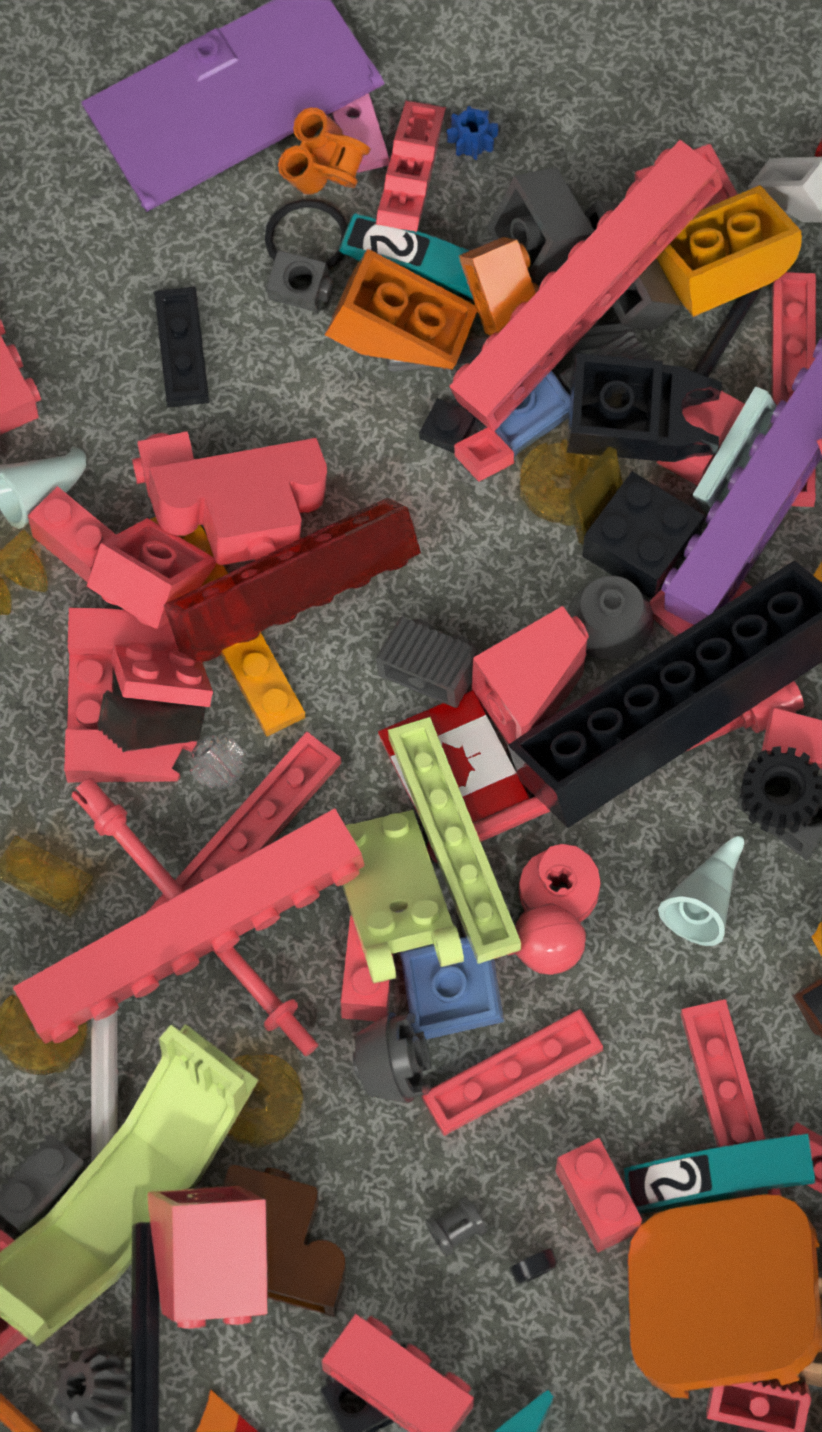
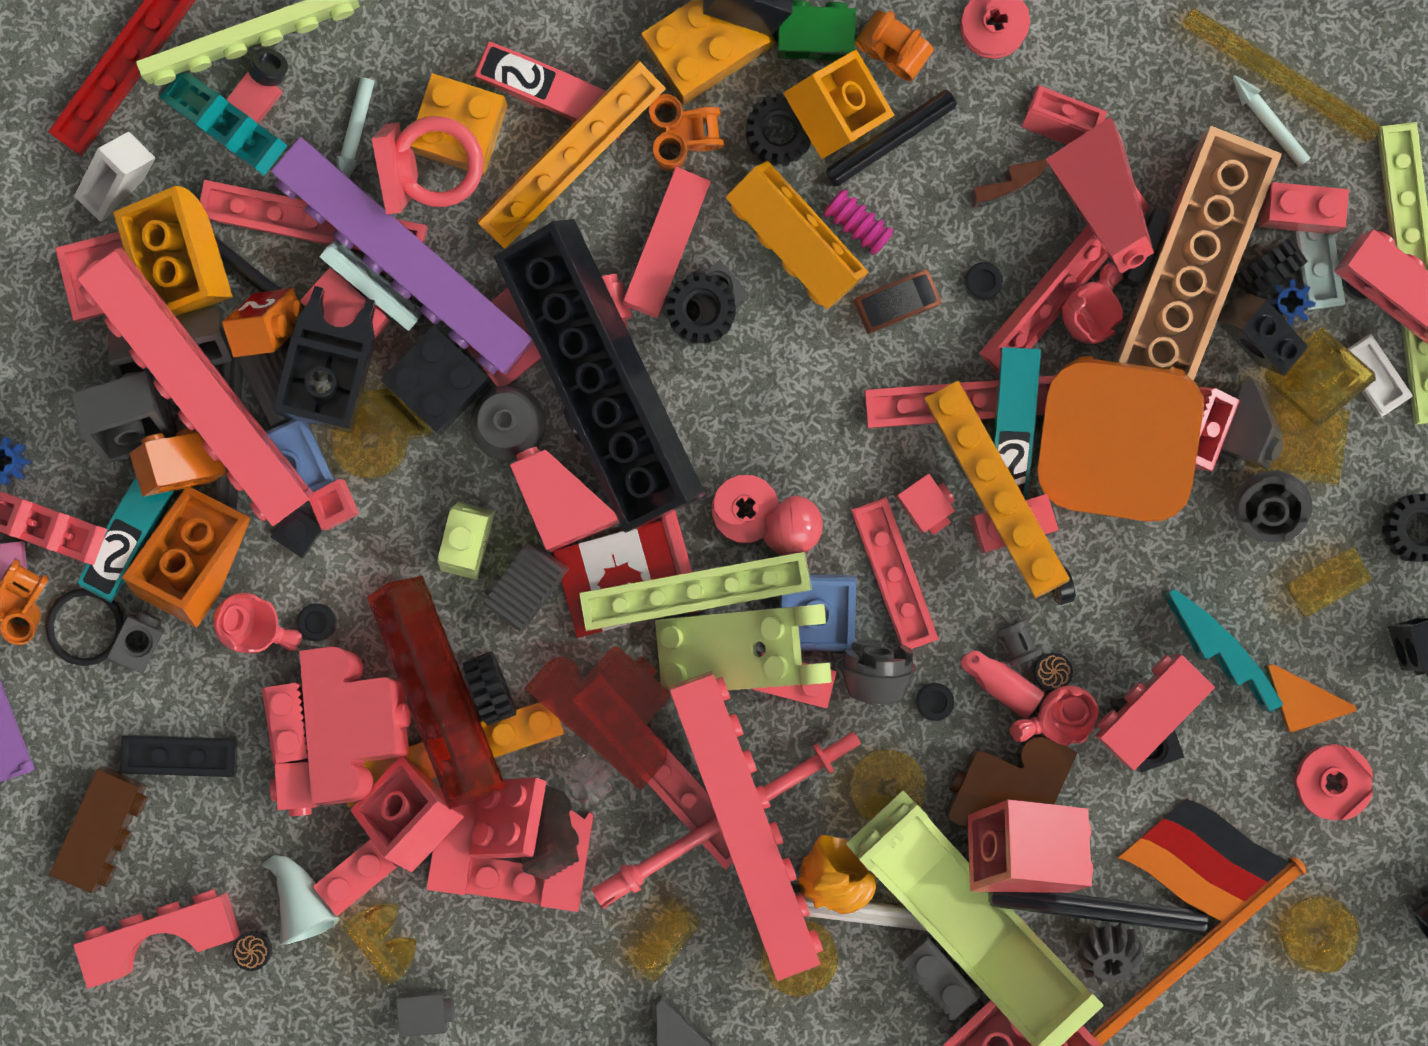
camera: 85 degrees left, 20 degrees up
(90, 278) = (99, 830): none -> reddish brown brick
(134, 1046) = (835, 877): none -> light orange hair
(235, 433) = (286, 722): none -> coral brick
(301, 763) = (609, 709): none -> clear red brick
(305, 637) = (489, 688): none -> black tyre
(336, 387) = (251, 625): none -> coral hair
(350, 460) = (316, 622): none -> black tile
(368, 1141) = (935, 701): none -> black tile
(373, 1282) = (1064, 717): none -> coral hair
(402, 1217) = (1003, 683): none -> coral piece
(426, 1276) = (1053, 671): none -> tile
(469, 589) = (465, 540): none -> yellowish green torso
(603, 1091) = (927, 504): none -> coral brick
(634, 1155) = (996, 490): none -> light orange plate
(669, 338) = (262, 322): none -> orange brick
(701, 893) = (775, 392): light aqua hat -> none

